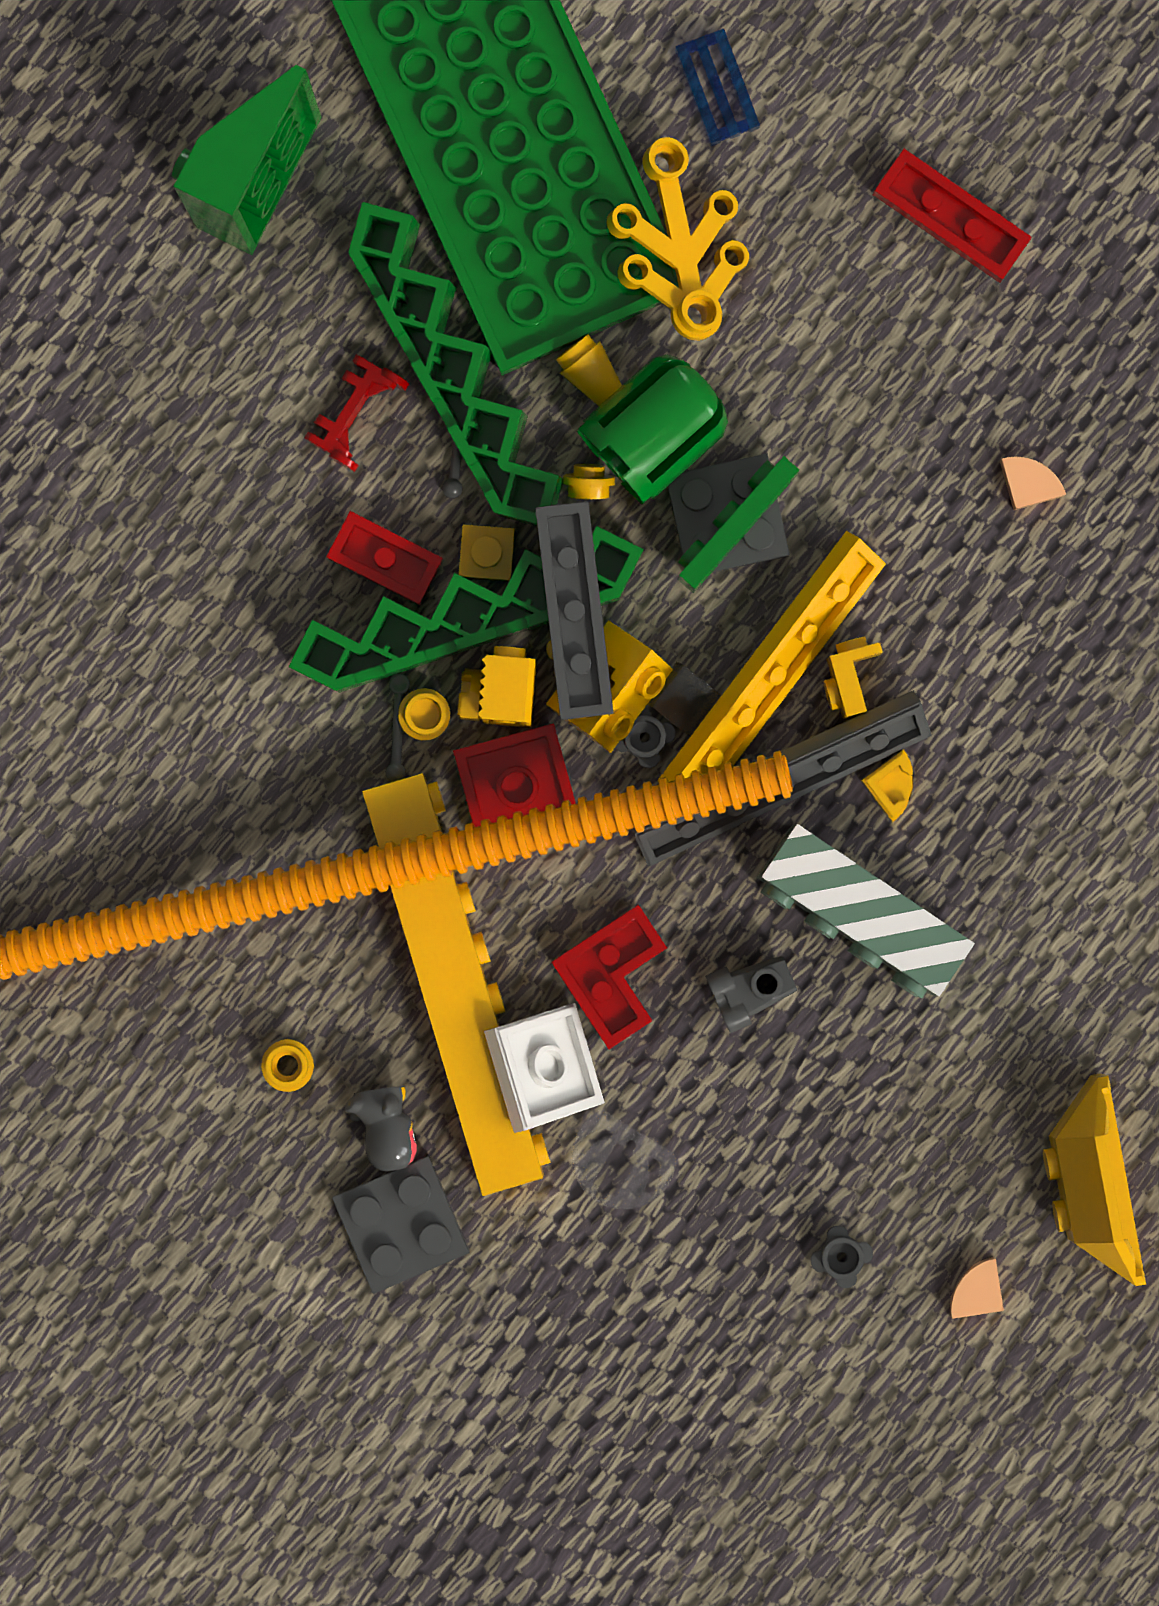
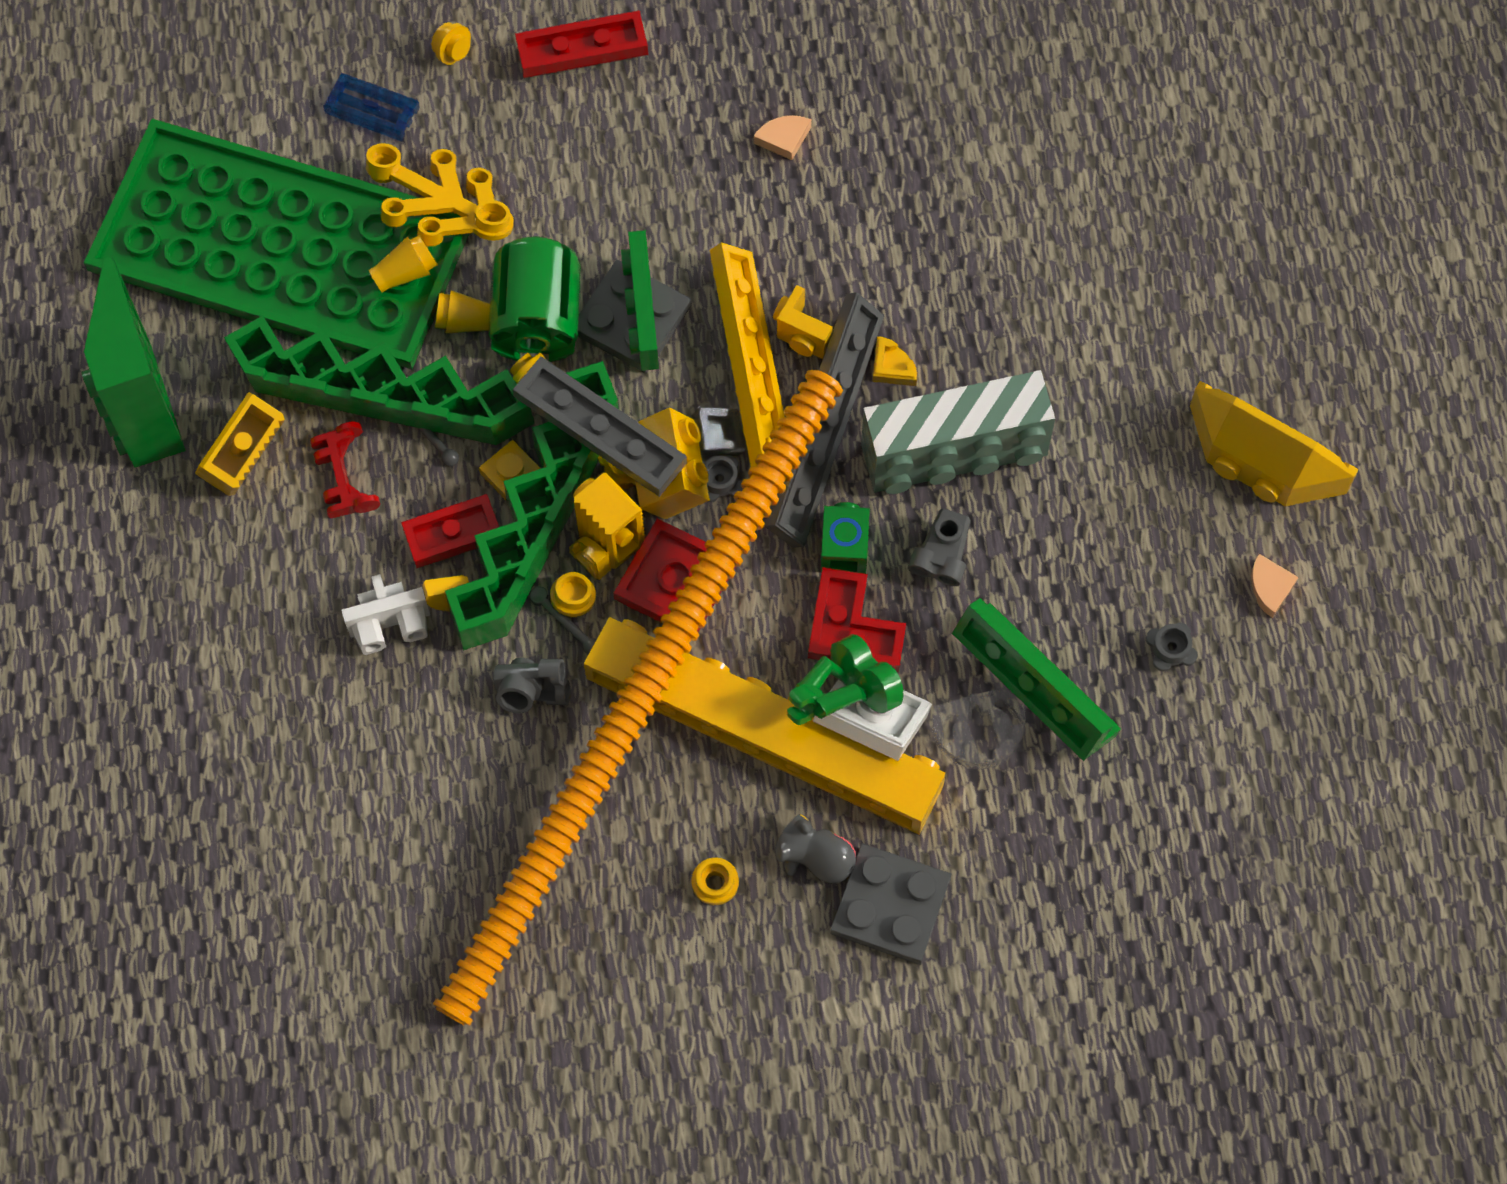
camera: 45 degrees left, 20 degrees down
(237, 570) = (384, 609): none -> white hips
(288, 307) = (240, 444): none -> yellow brick
(309, 750) = (528, 681): none -> dark grey plate
(322, 612) = (435, 590): none -> yellow tile
(564, 1023) = (855, 667): none -> green piece
(581, 282) = (403, 264): none -> yellow cone
(684, 897) = (845, 537): none -> green brick
(695, 1175) = (1034, 679): none -> green fence
(843, 98) = (451, 42): none -> yellow plate

